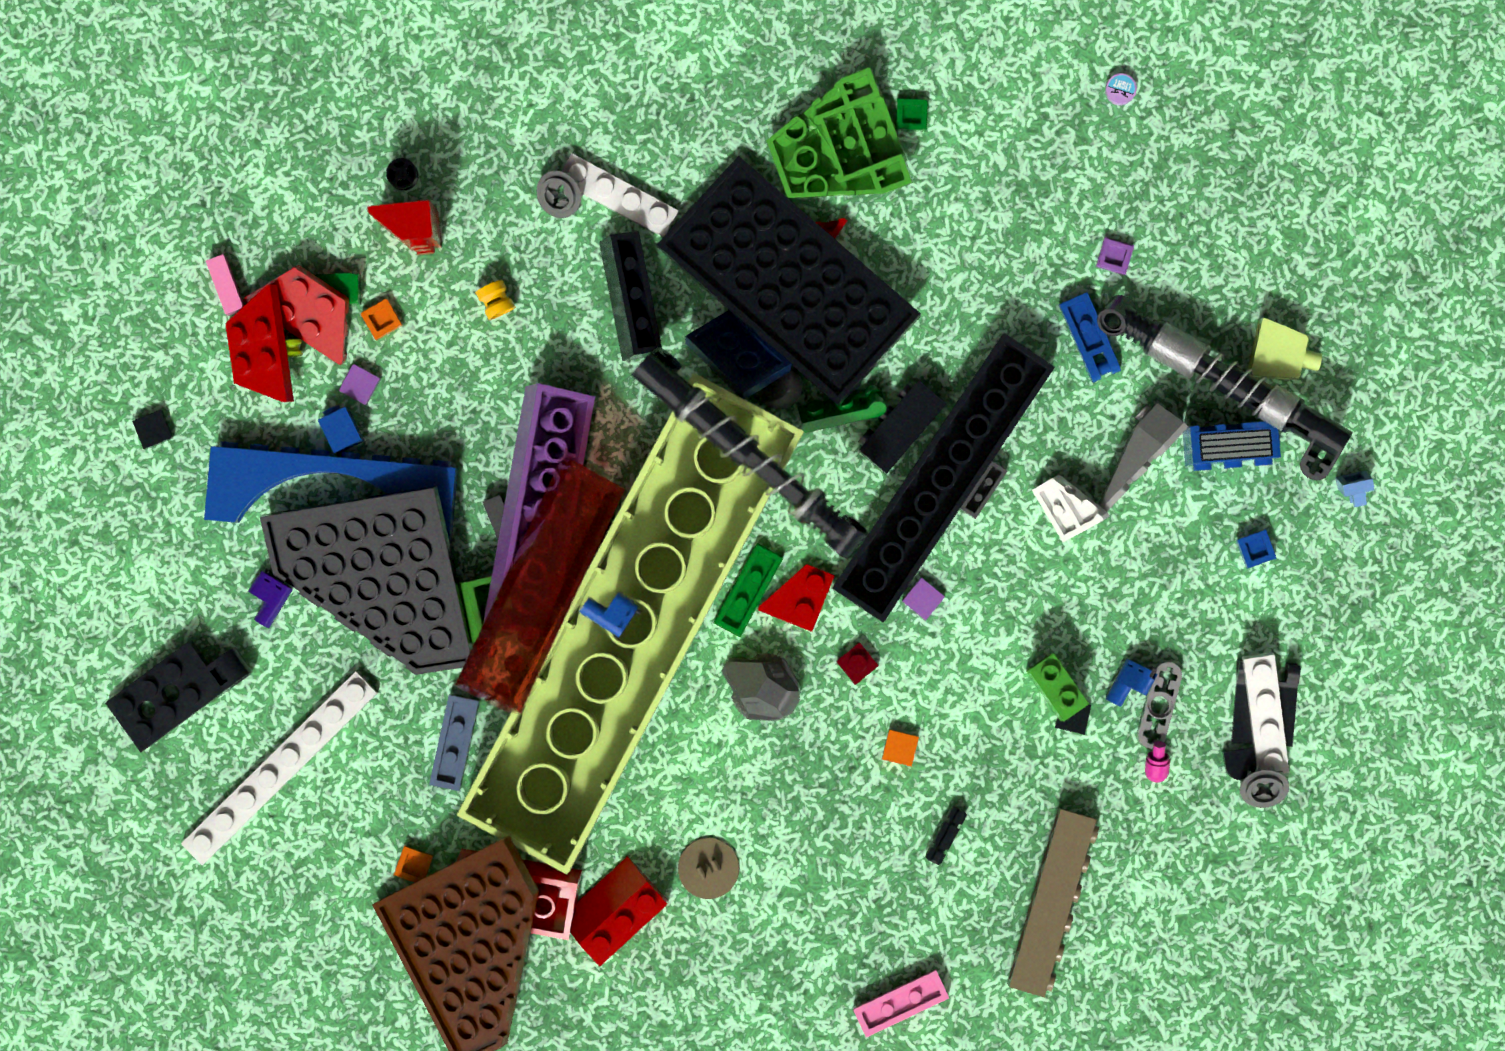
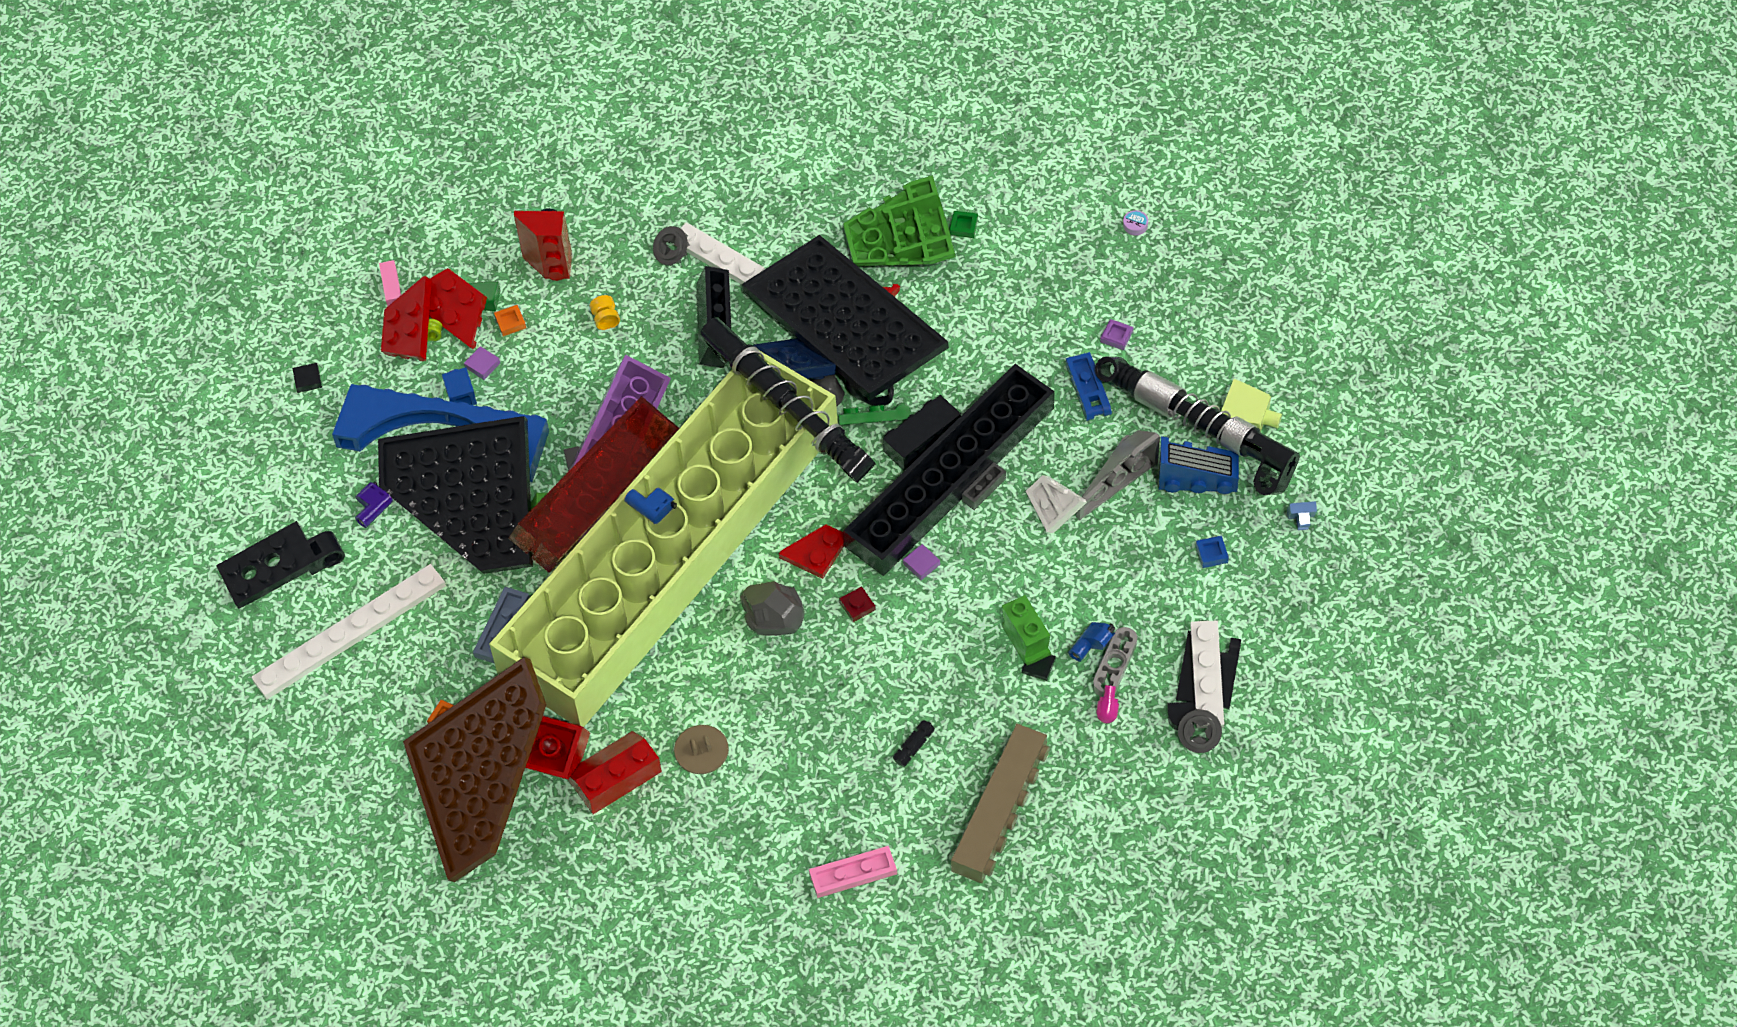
camera: 10 degrees right, 30 degrees down
(748, 590) = (773, 540): green tile -> none
(900, 748) = (884, 672): orange tile -> none

